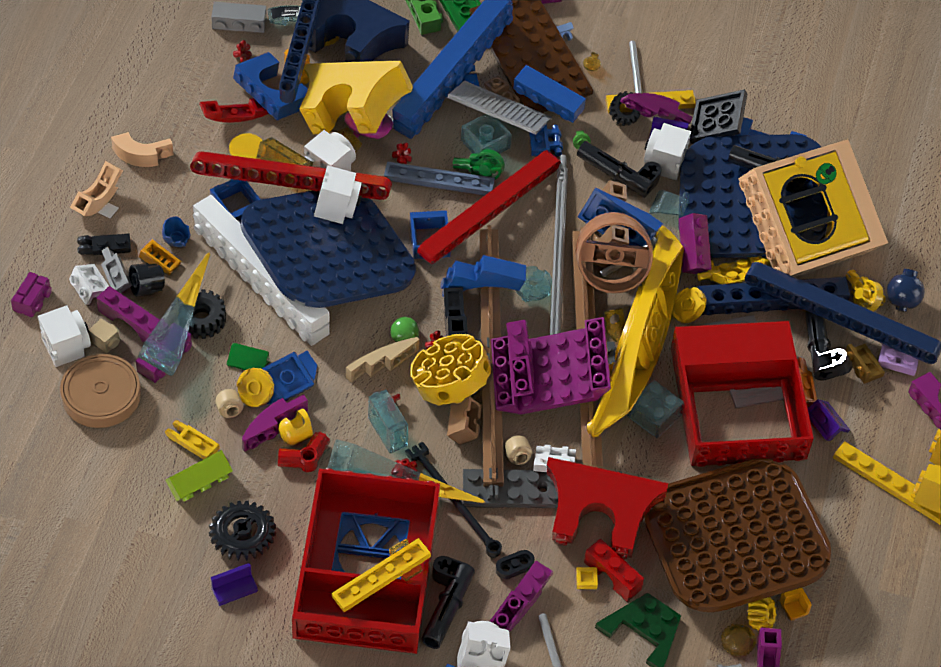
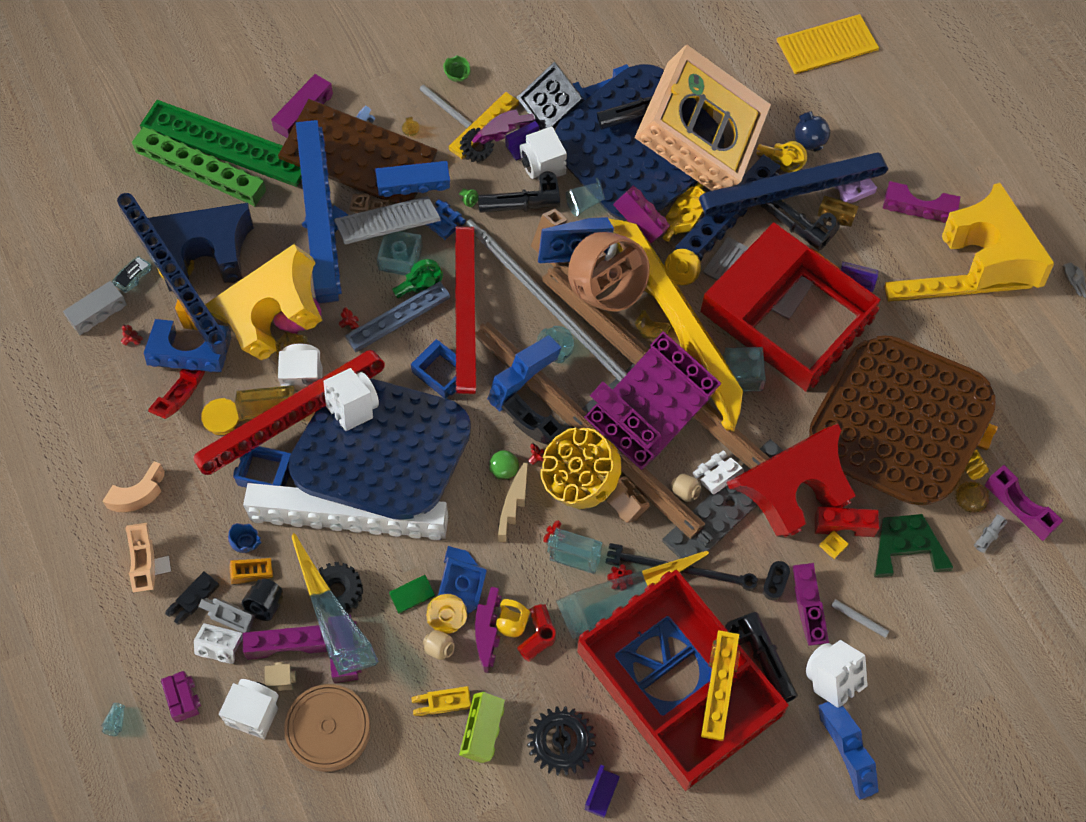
camera: 40 degrees left, 10 degrees up
(671, 47) = (457, 68): none -> bright green hair

